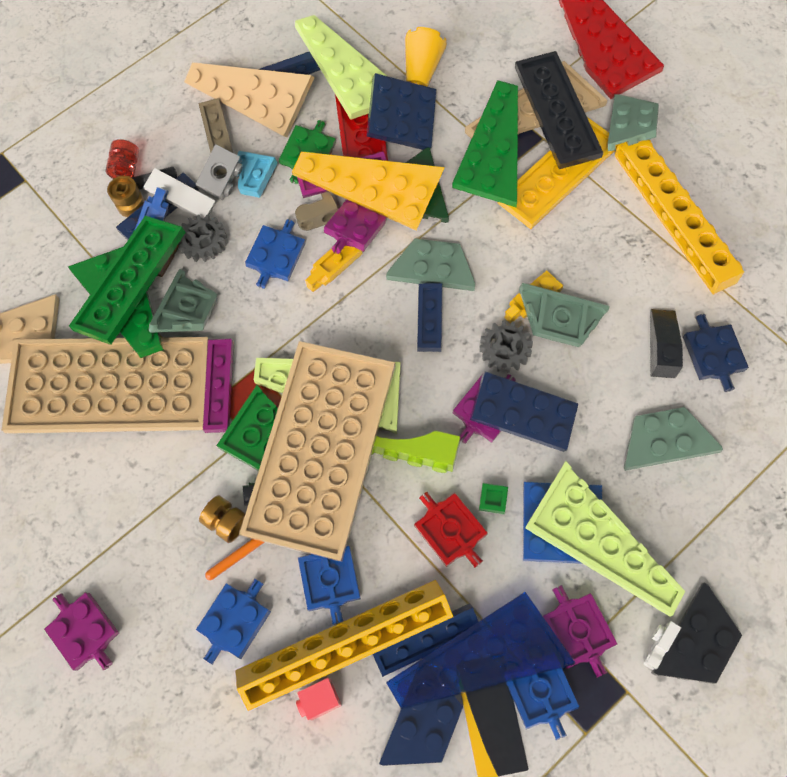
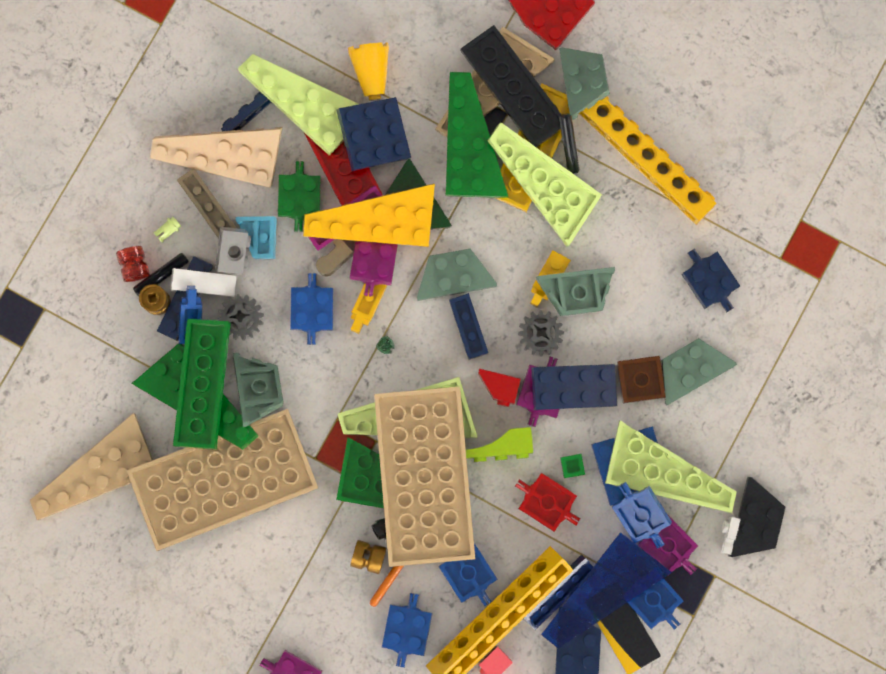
camera: 25 degrees left, 15 degrees up
(170, 143) = (168, 228): none -> yellowish green pin
(218, 386) = (314, 447): magenta plate -> none
(336, 309) = (385, 344): none -> clear green hinge
(442, 386) = (500, 386): none -> red slope
(558, 578) = (642, 514): none -> plate
(566, 209) = (553, 189): none -> yellowish green wing
(598, 172) = (569, 143): none -> black axle
(604, 430) = (641, 379): none -> reddish brown plate
(665, 344) = (668, 285): black slope -> none

